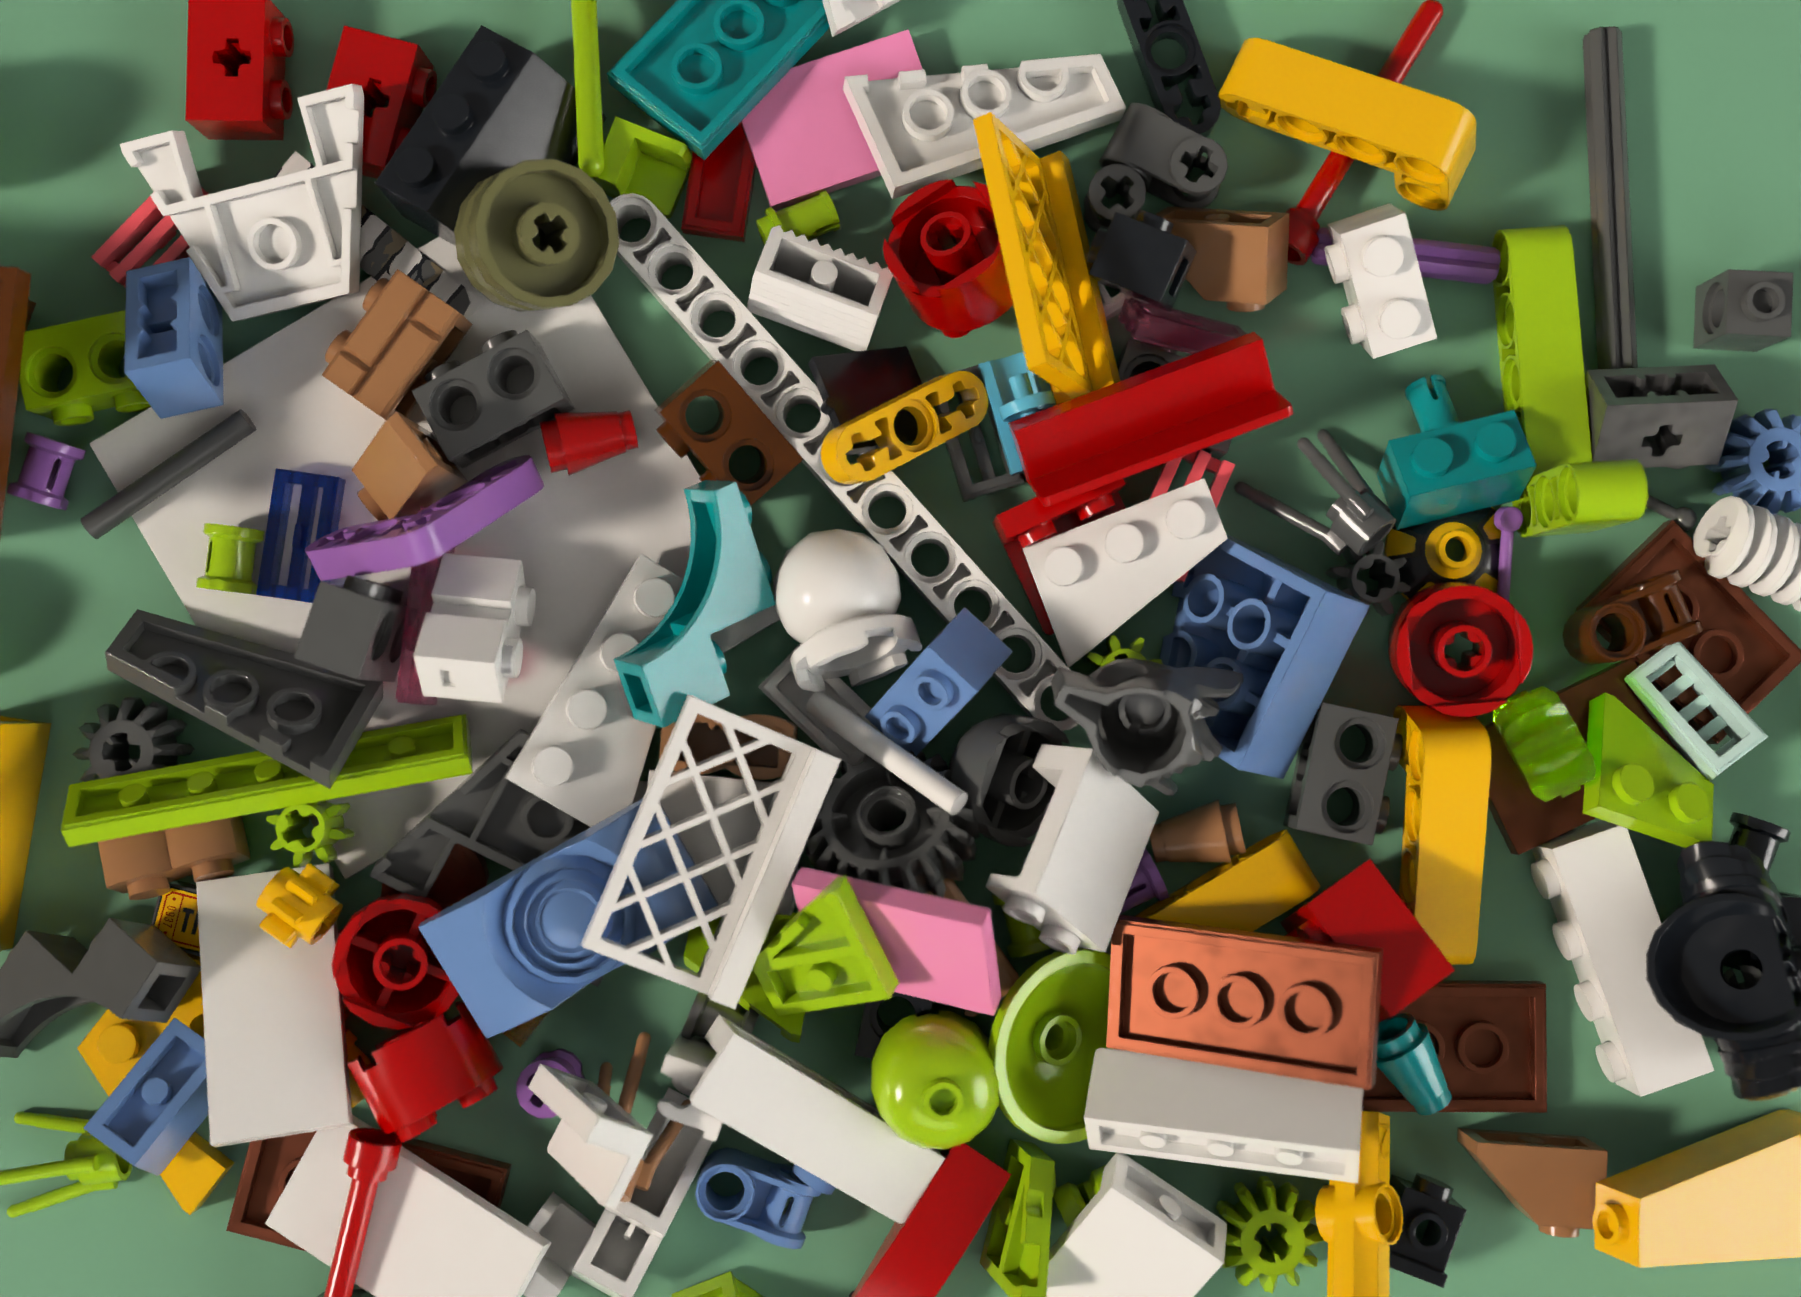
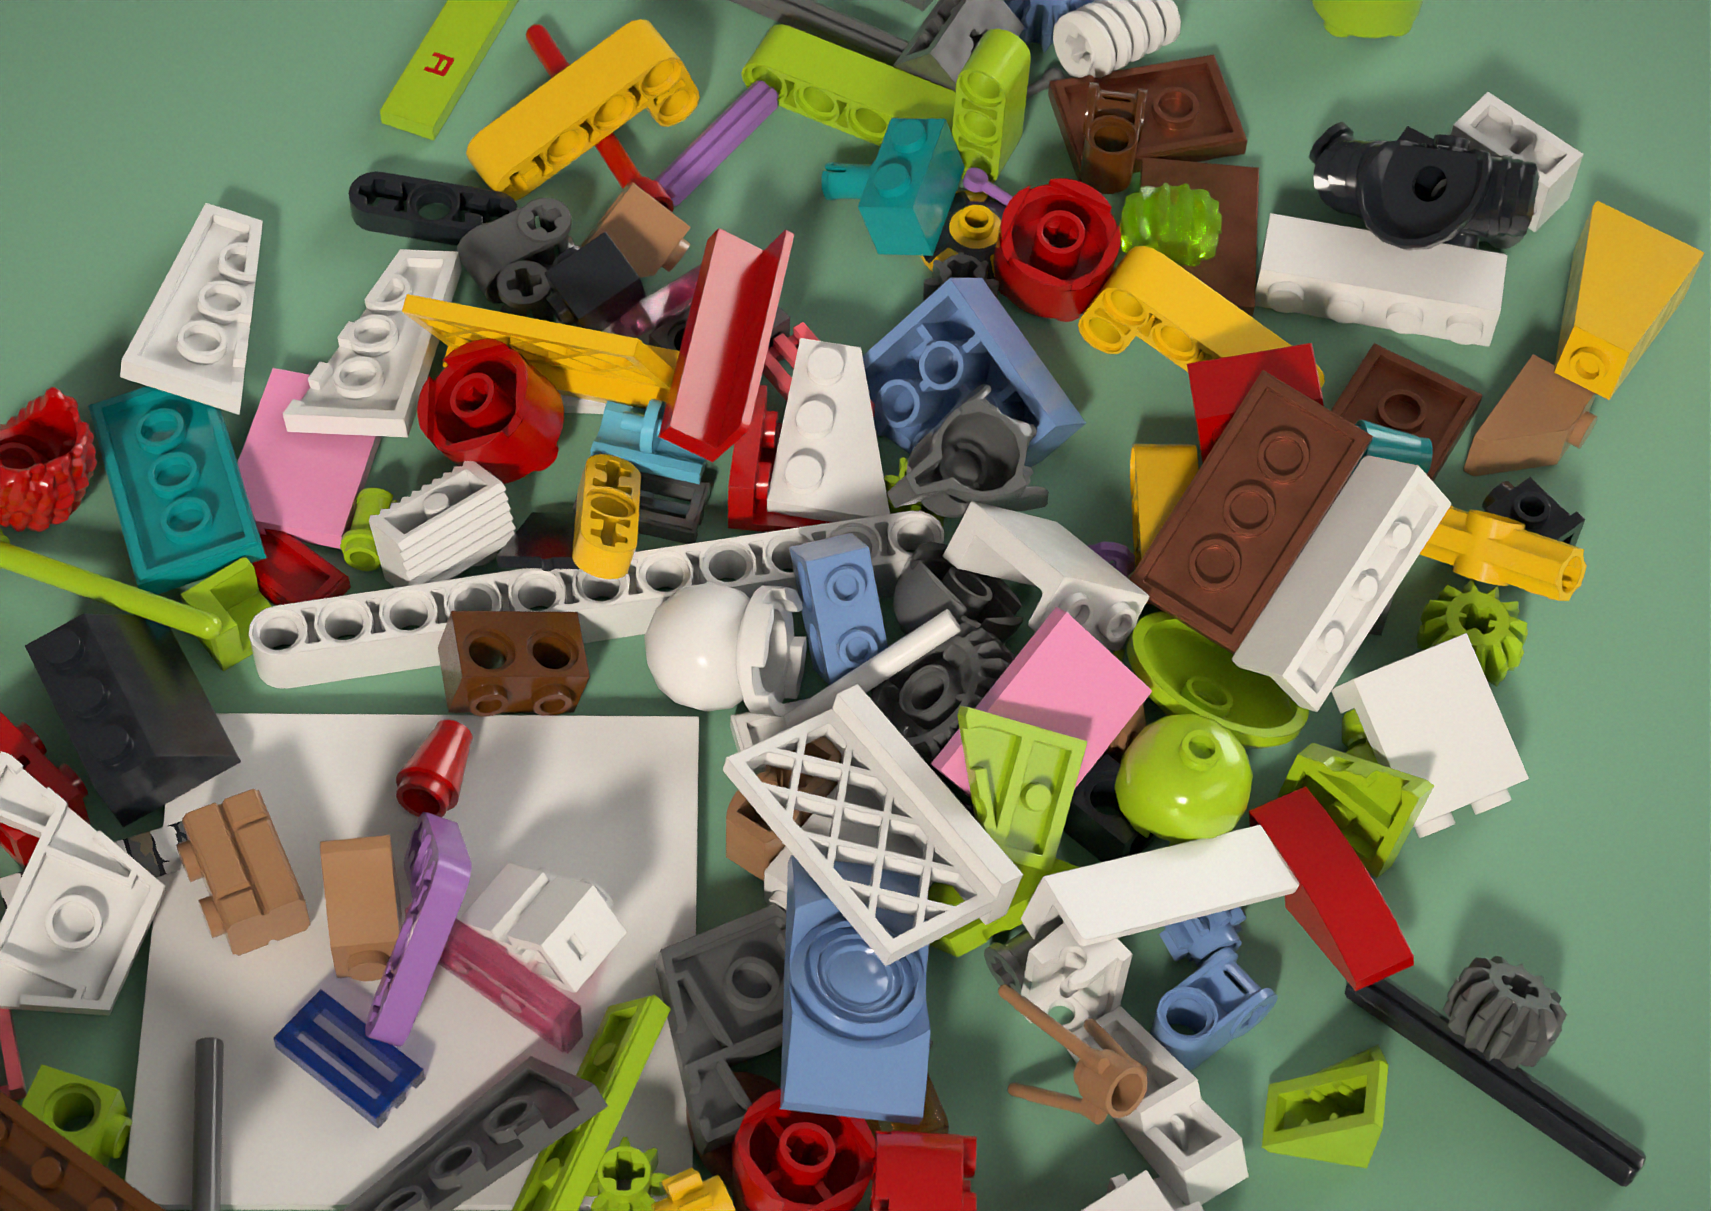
camera: 60 degrees left, 30 degrees down
(174, 338) = (98, 1038): medium blue brick -> none
(230, 558) = (328, 1118): lime bush -> none
(355, 630) = (478, 1017): dark grey brick -> none
(498, 415) = (337, 816): dark grey brick -> none
(514, 206) = (241, 689): olive wheel -> none
(558, 1059) = (1006, 1108): medium lavender bush -> none
(587, 743) = (687, 878): white wing -> none
(595, 1135) = (1062, 1054): white panel -> none
(721, 586) = (643, 725): teal arch -> none
(1199, 835) = (1099, 503): medium nougat cone -> none
(1324, 768) = (1110, 384): dark grey brick -> none
(1357, 515) = (903, 260): dark grey plant -> none
(1381, 281) = (727, 151): white brick -> none
(1643, 779) = (1250, 186): lime wing -> none
(1727, 712) = (1228, 115): light aqua slope -> none

